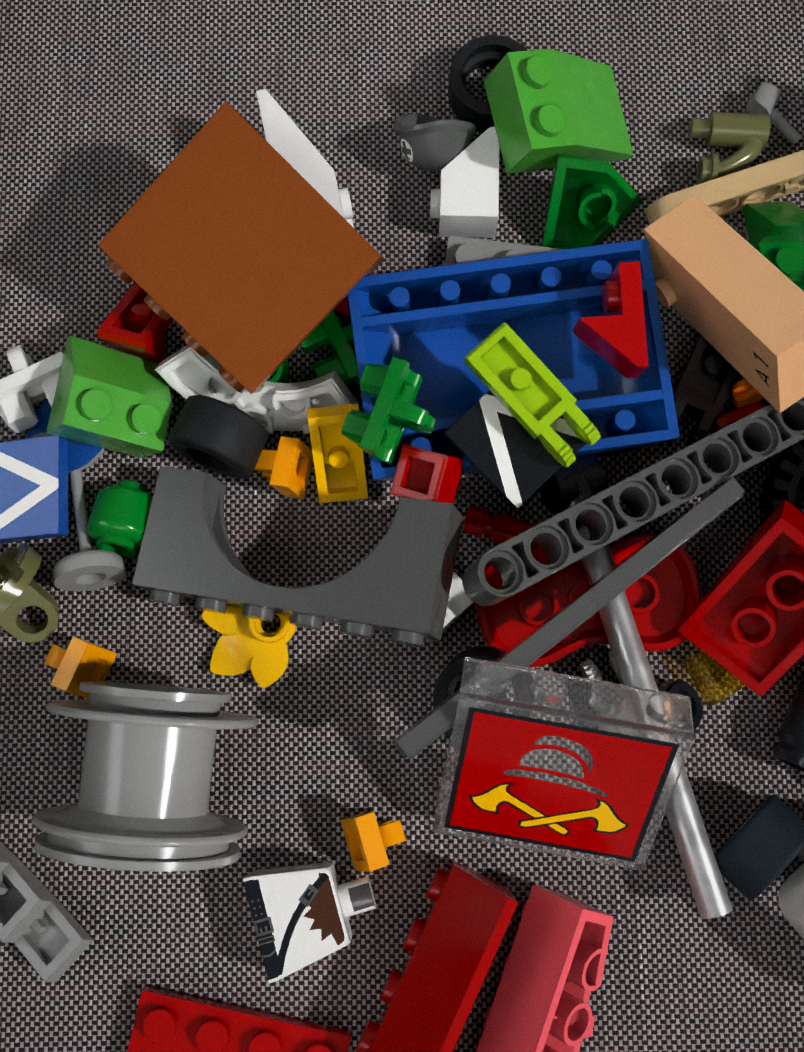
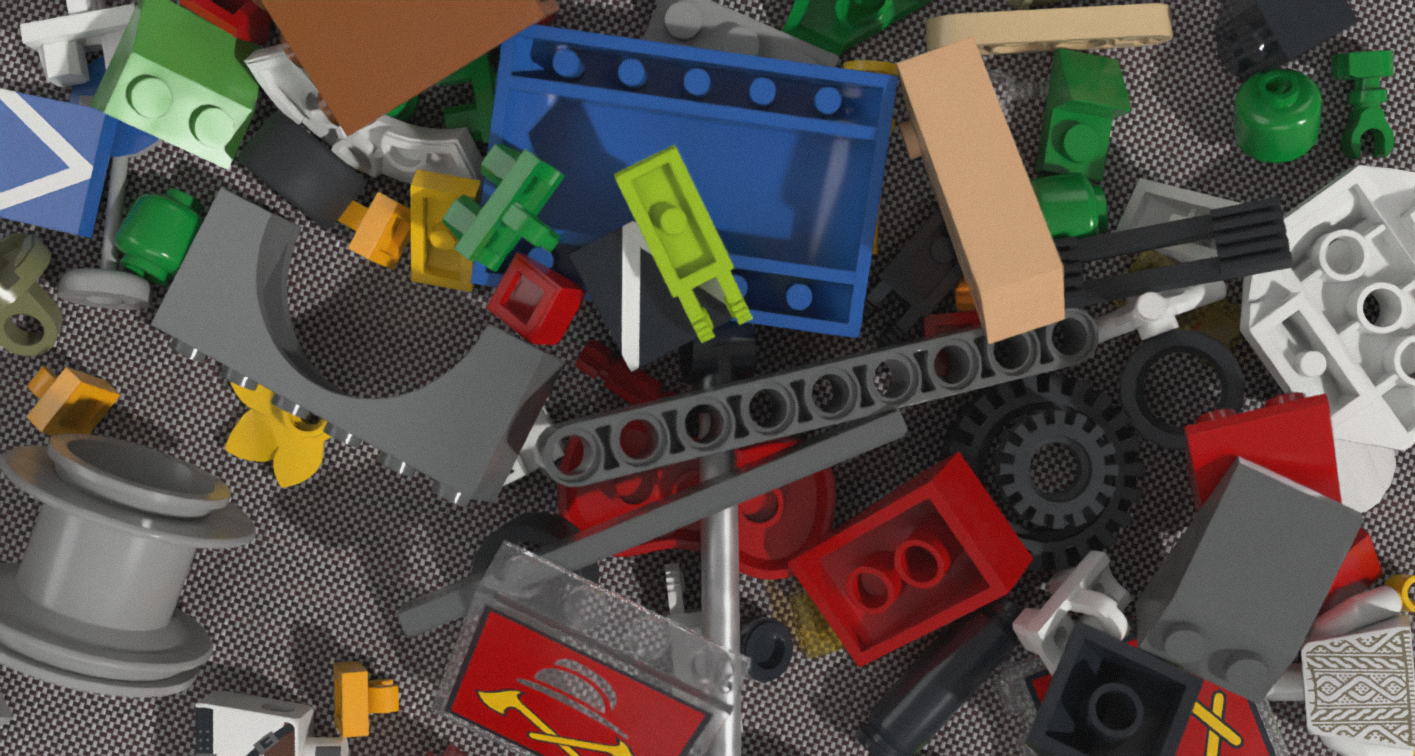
camera: 10 degrees right, 10 degrees up
(622, 336) = (821, 198): red slope -> none

